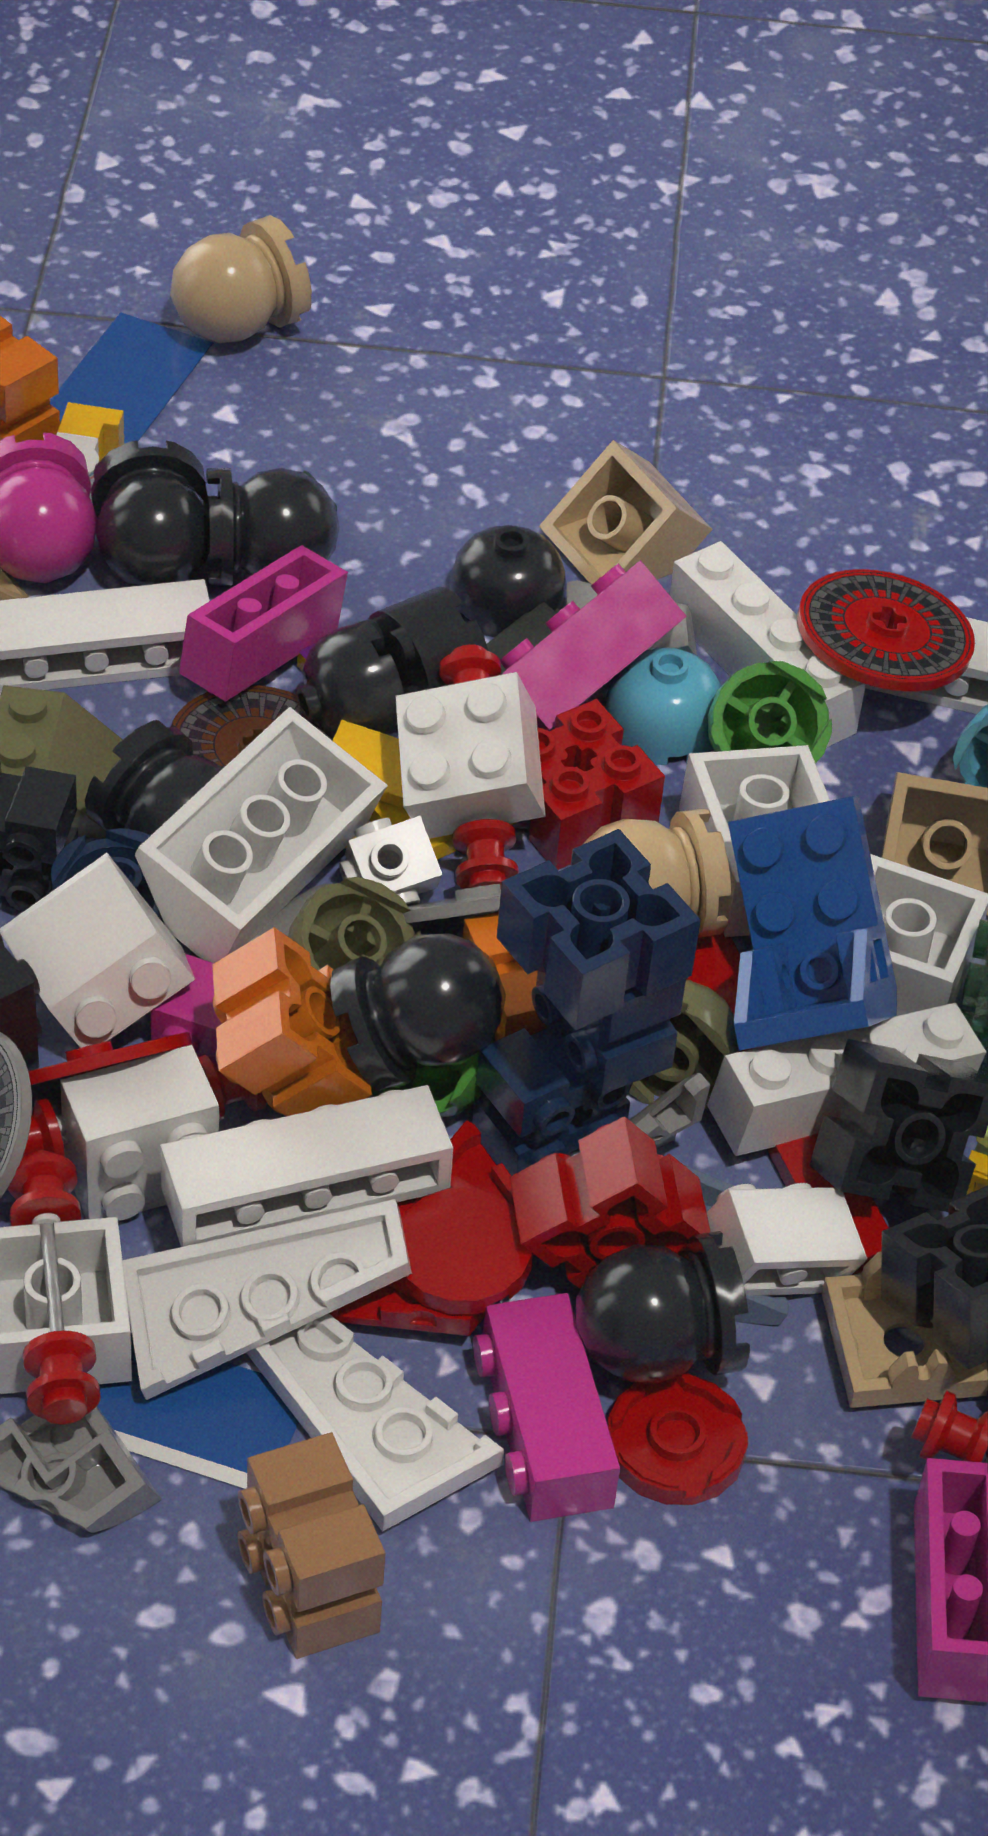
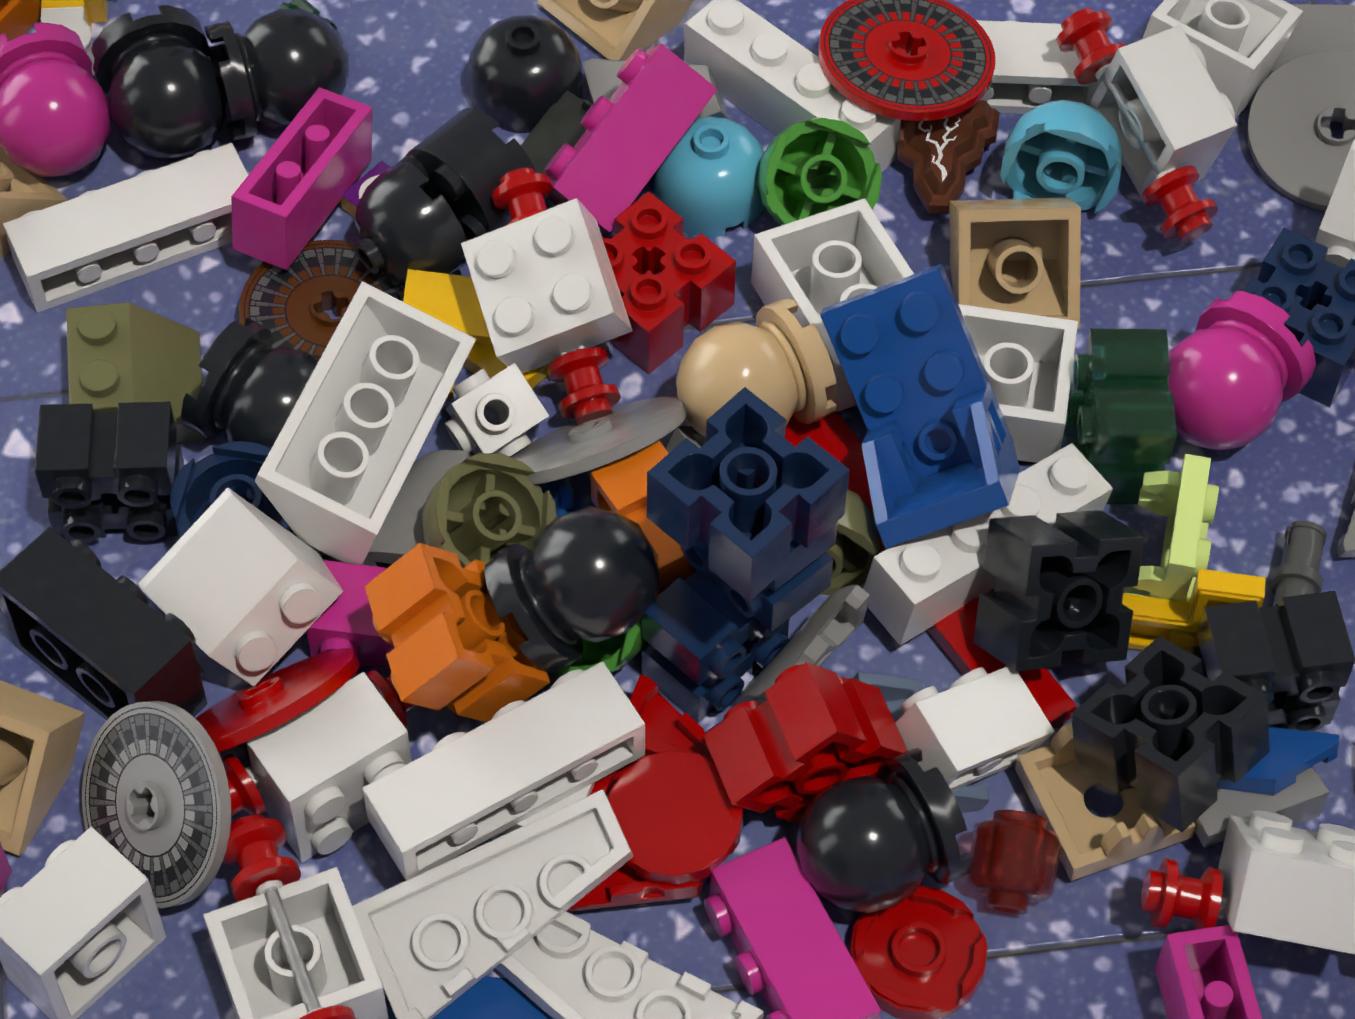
camera: 10 degrees left, 10 degrees up
(795, 1371) = (1014, 860): none -> clear red head
(905, 727) = (945, 151): none -> copper rock

